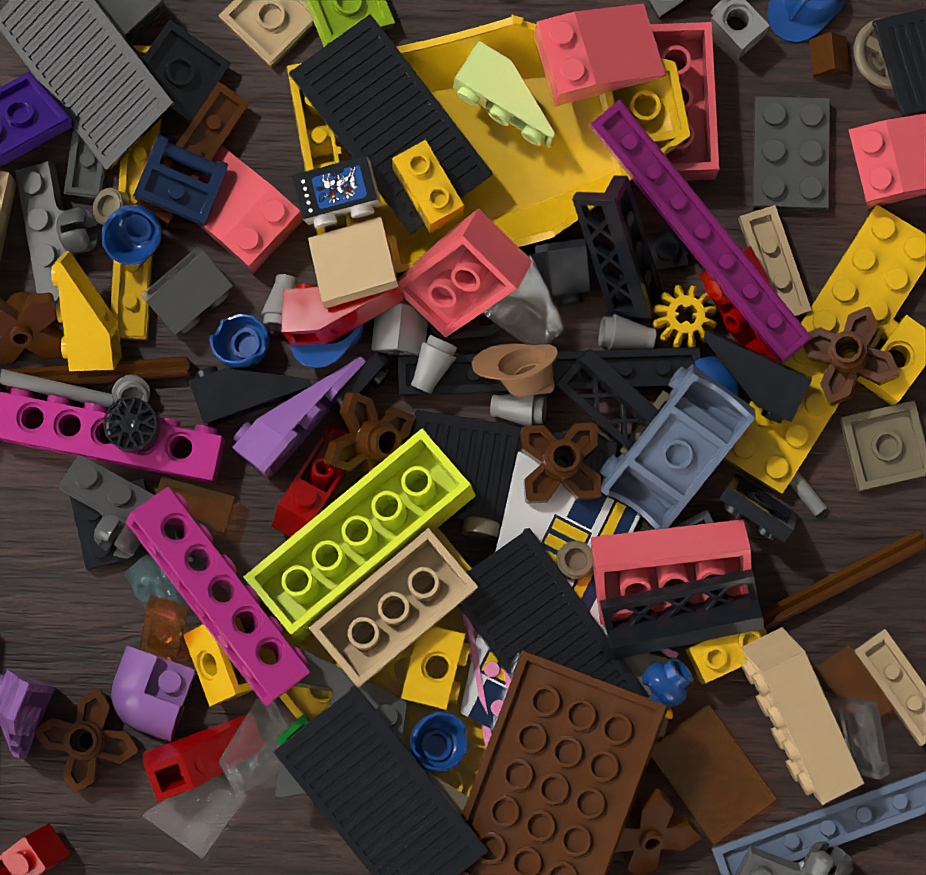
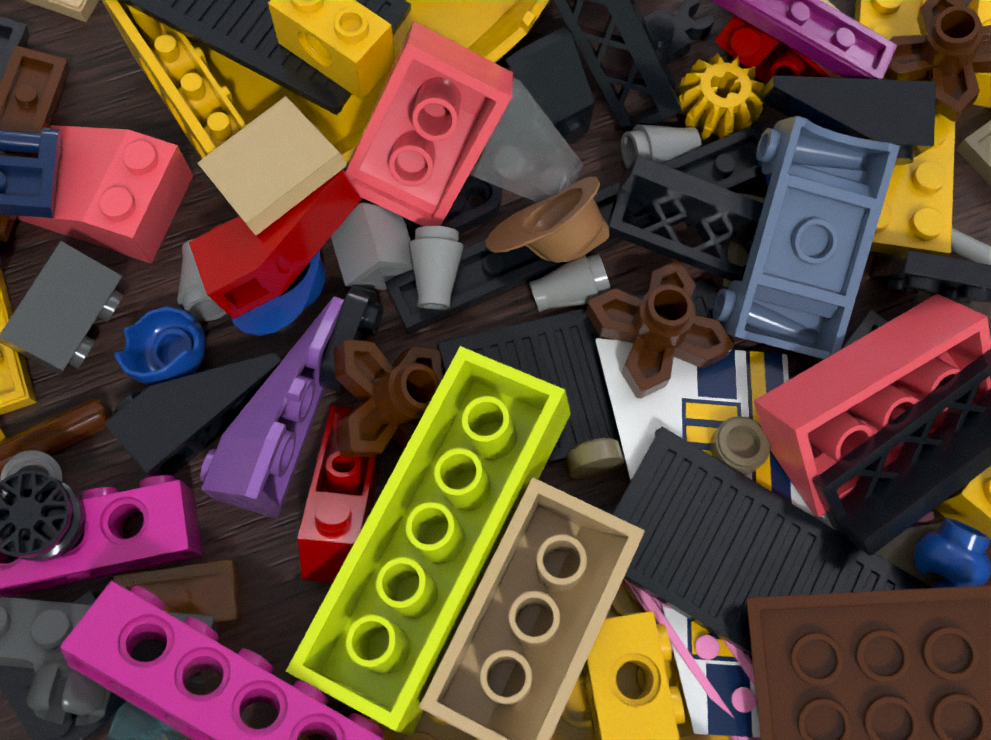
camera: 30 degrees left, 10 degrees down
(337, 191) = (212, 84): brick -> none

